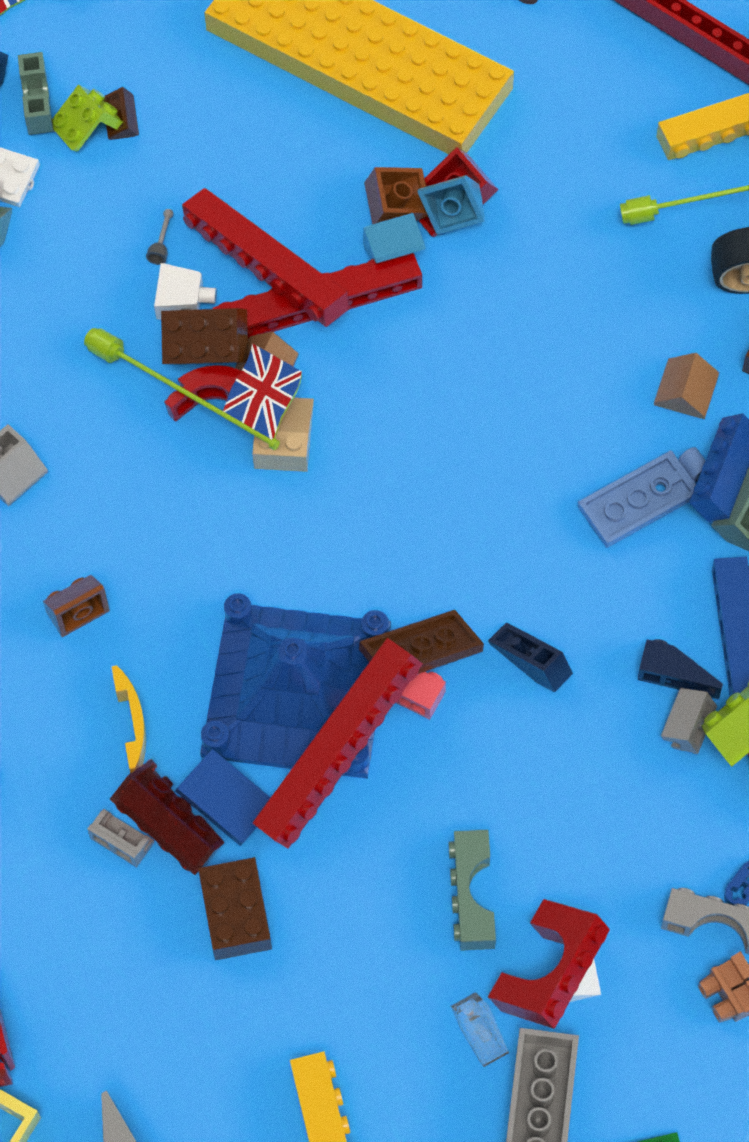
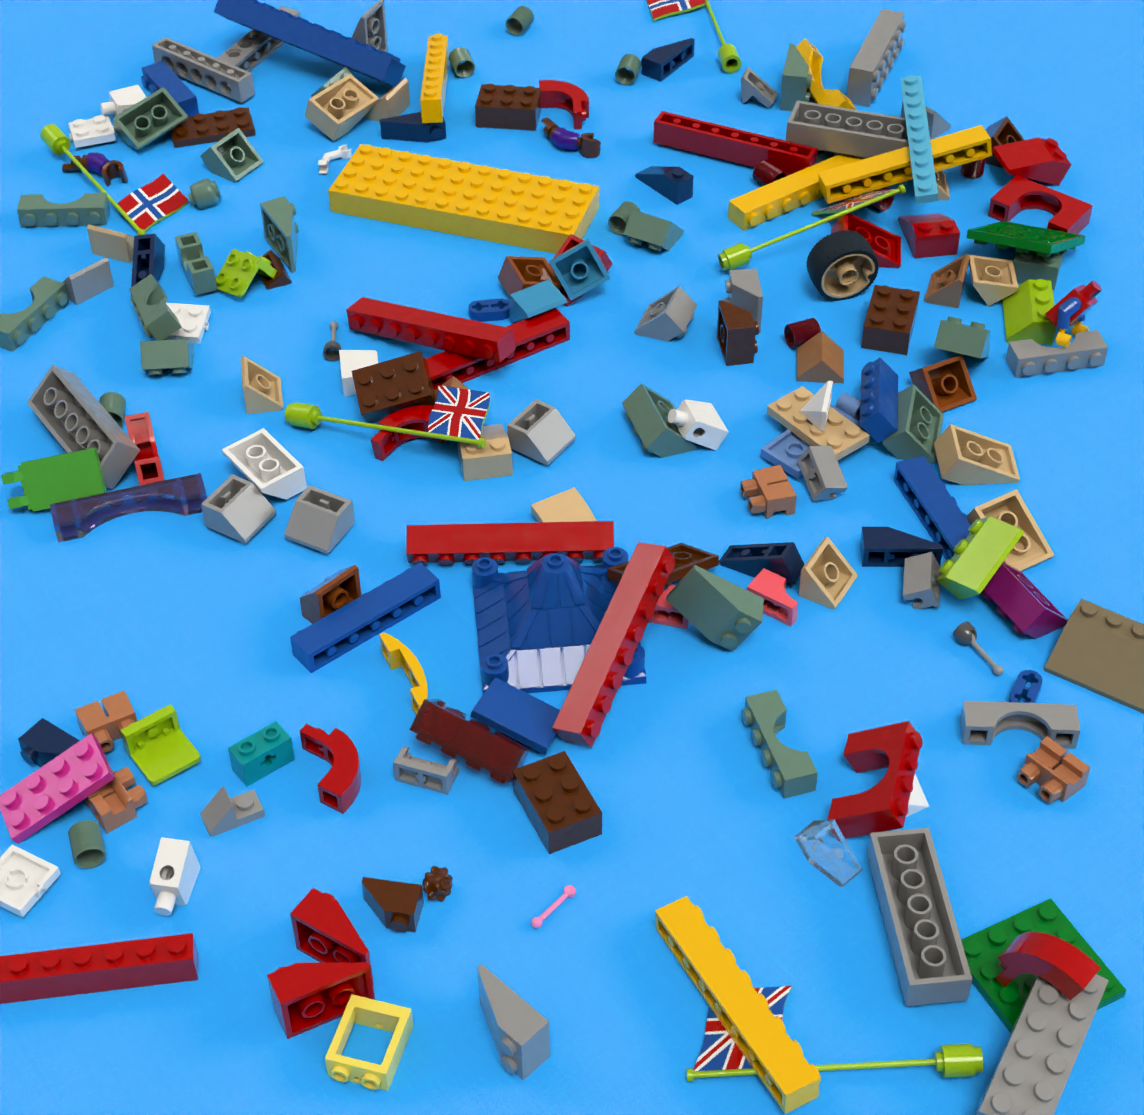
camera: 15 degrees left, 20 degrees down
(41, 828) = (343, 781): none -> red arch
(46, 413) = (267, 465): none -> white slope
(54, 987) = (394, 902): none -> reddish brown slope
(67, 294) = (260, 388): none -> tan slope
(87, 498) = (319, 519): none -> light grey slope
(98, 973) = (437, 883): none -> reddish brown plant
(106, 634) = (365, 617): none -> blue brick
(141, 59) = (281, 229): none -> sand green slope
(222, 1009) = (569, 892): none -> bright pink hinge
(275, 572) = (507, 541): none -> red brick
(343, 227) = (489, 310): none -> blue beam
(343, 548) = (563, 507): none -> tan slope
(347, 428) = (540, 432): none -> light grey slope
(458, 721) = (717, 607): none -> sand green slope
(479, 439) = (650, 419): none -> sand green slope
(520, 453) = (699, 423): none -> white torso
(522, 702) = (776, 600): none -> coral arch
(533, 118) = (620, 217): none -> sand green piece
(535, 283) = (667, 316): none -> light grey slope
(559, 147) = (652, 231): none -> sand green slope
(571, 562) = (770, 491): none -> nougat hips
(592, 691) = (826, 576): none -> tan slope
(601, 67) = (668, 181): none -> dark blue slope
(602, 335) = (736, 334): none -> slope
(625, 281) = (745, 292): none -> light grey slope
(631, 553) = (822, 473): none -> light grey hinge
(649, 483) = (839, 431): none -> tan plate
(651, 469) = (818, 407): none -> white slope
(679, 341) = (801, 331): none -> dark red piece
(711, 799) = (966, 634): none -> hinge
(722, 83) = (767, 173): none -> dark red piece

